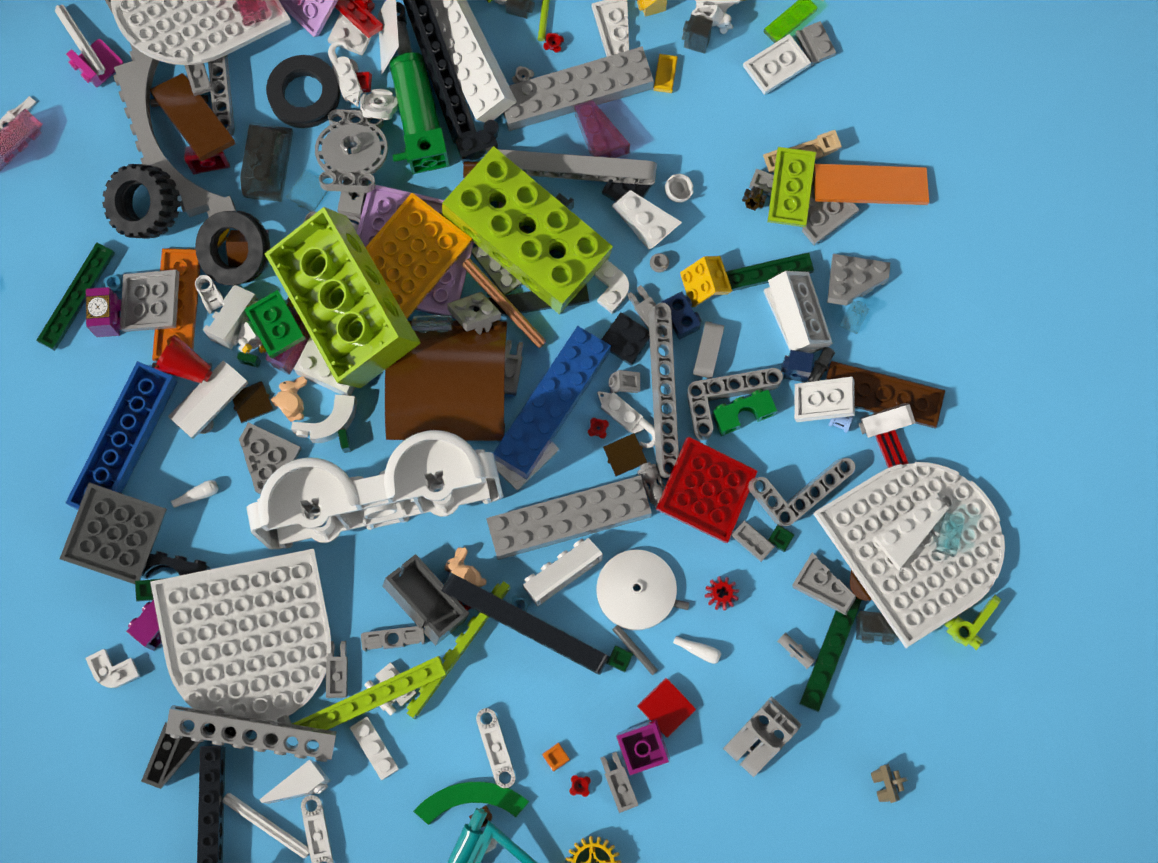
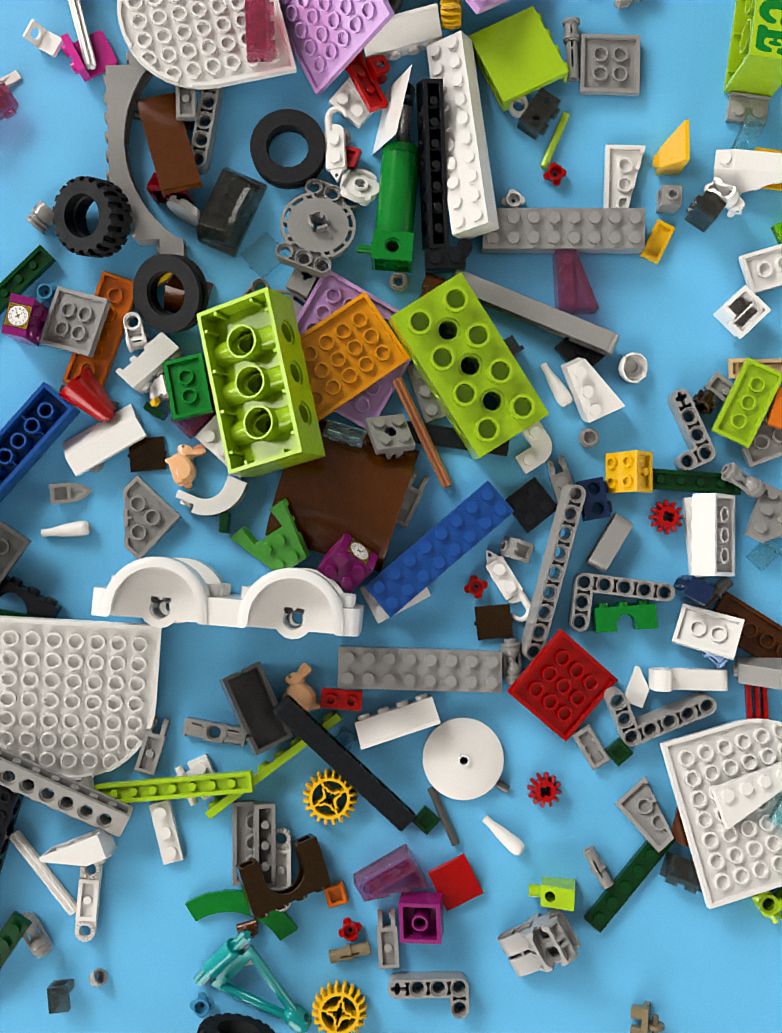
camera: 20 degrees right, 10 degrees up
(50, 62) = (45, 40): none -> white bracket
(91, 217) = (41, 217): none -> light grey piece
(186, 459) = (67, 492): none -> light grey plate
(224, 172) = (184, 210): none -> light grey tile
(405, 429) = (282, 547): none -> bright green wing
(440, 172) = (398, 276): none -> light grey plate
(462, 731) = (254, 837): none -> light grey slope
(475, 430) = (348, 562): none -> magenta brick
(484, 771) = (311, 877): none -> dark brown arch
(503, 565) = (341, 699): none -> red bracket
(528, 657) = (333, 804): none -> yellow gear
(586, 806) = (349, 952): none -> dark tan pin
(601, 717) = (390, 874): none -> clear pink wedge
(619, 229) = (558, 389): none -> white piece
(663, 33) = (669, 199): none -> light grey brick
(669, 809) = (428, 978): none -> light grey beam
(745, 227) = (686, 429): none -> light grey beam
(751, 304) = (666, 508): none -> red gear
(760, 110) = (741, 312): none -> white plate
(770, 681) = (562, 893): none -> lime torso
(778, 474) = (637, 688): none -> white tile
(803, 455) = (704, 679): none -> white beam
(819, 258) = (750, 485): none -> light grey piece

